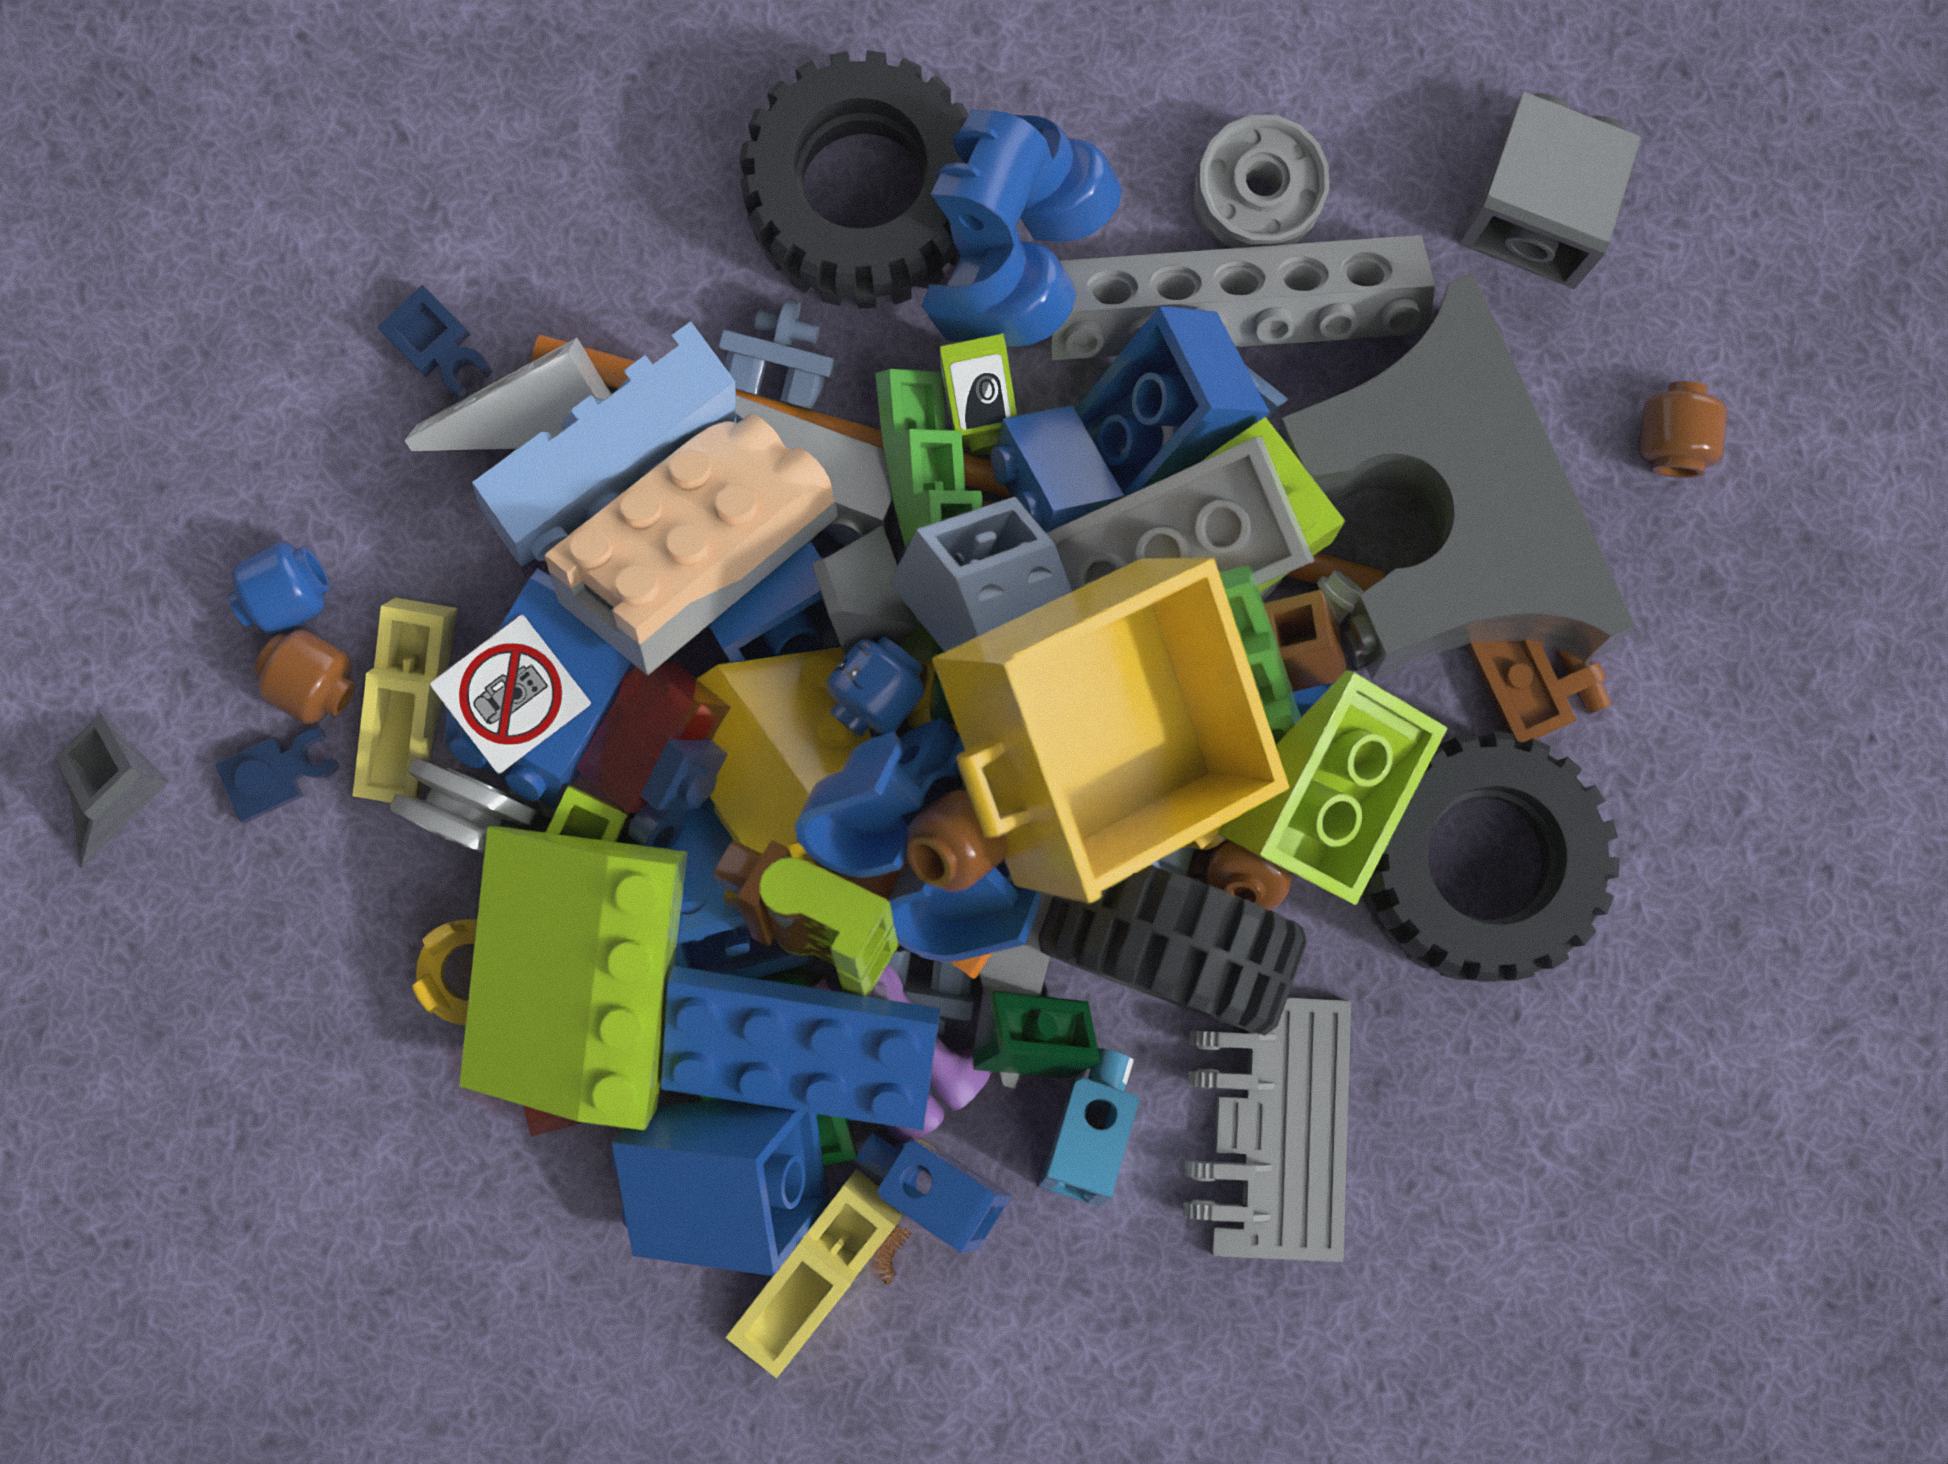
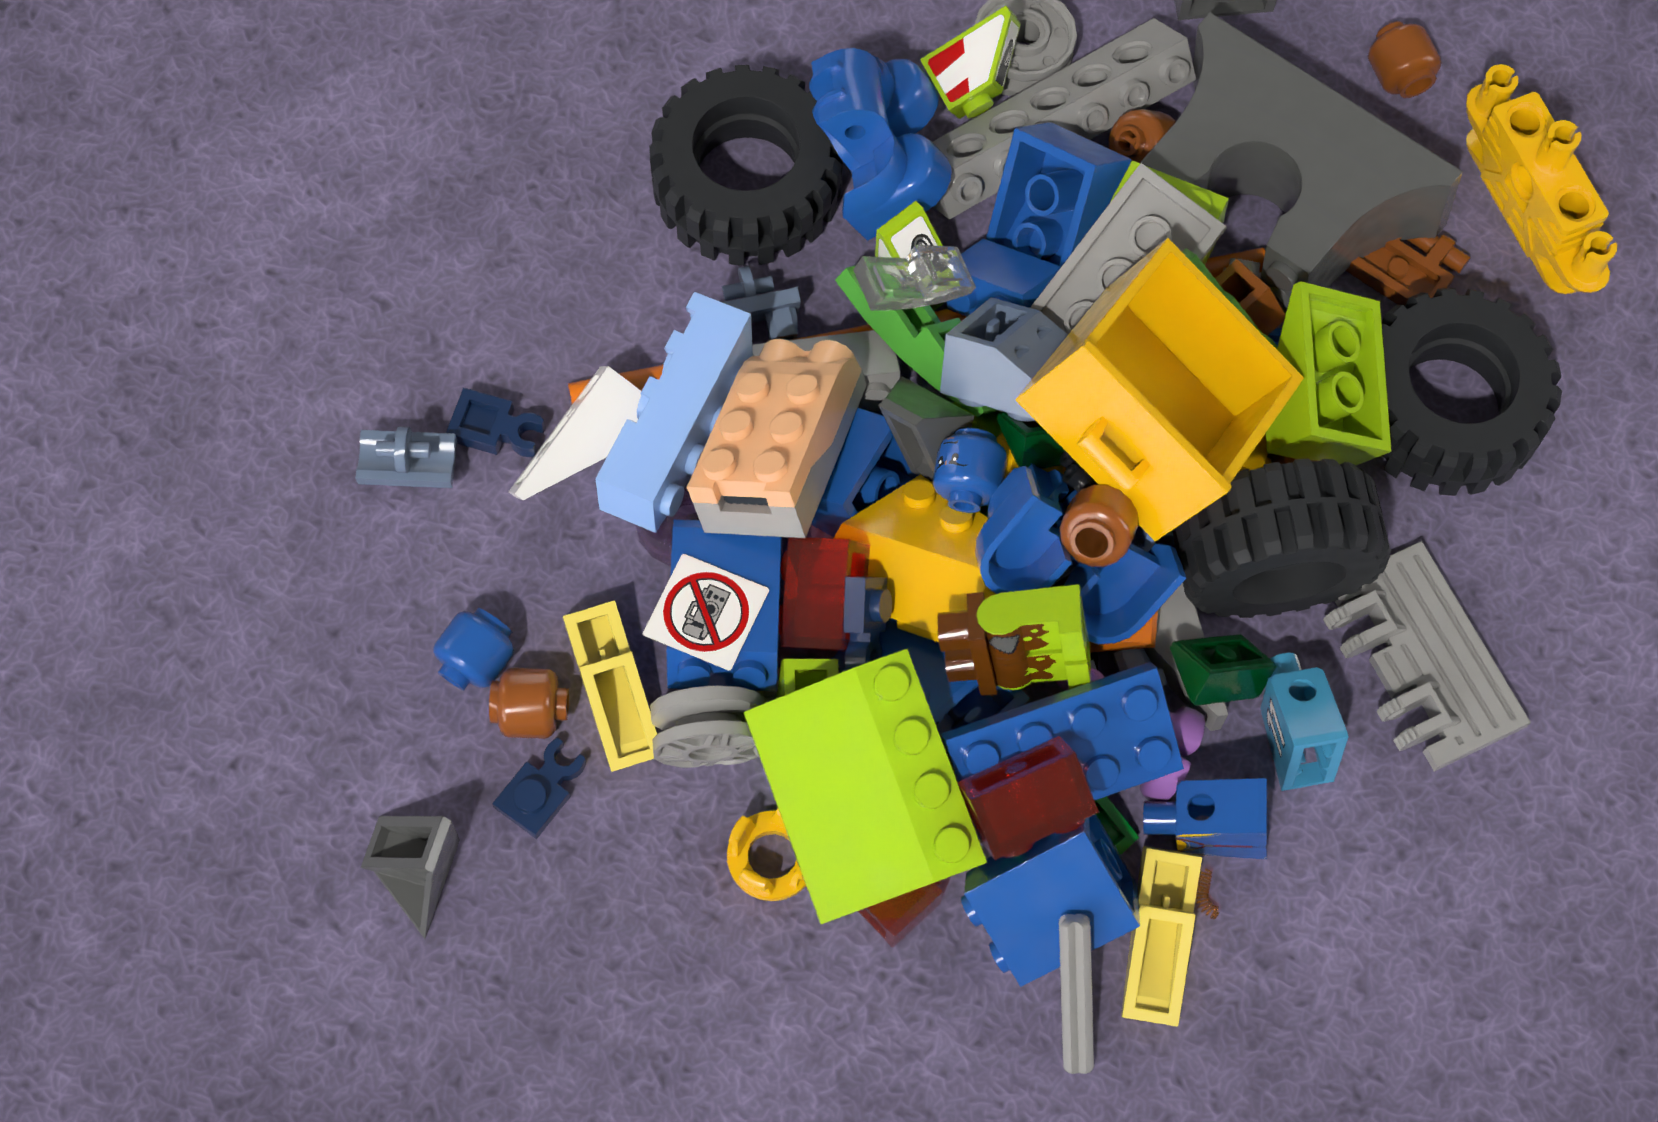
camera: 30 degrees left, 15 degrees down
(319, 337) = (406, 458): none -> sand blue hips
(680, 1298) = (1076, 993): none -> light grey axle
(720, 1088) = (1028, 798): none -> clear red brick
(952, 426) = (919, 280): none -> clear slope
(1175, 194) = (974, 64): none -> slope
(1318, 372) = (1138, 132): none -> dark orange head
(1734, 668) = (1539, 183): none -> yellow piece

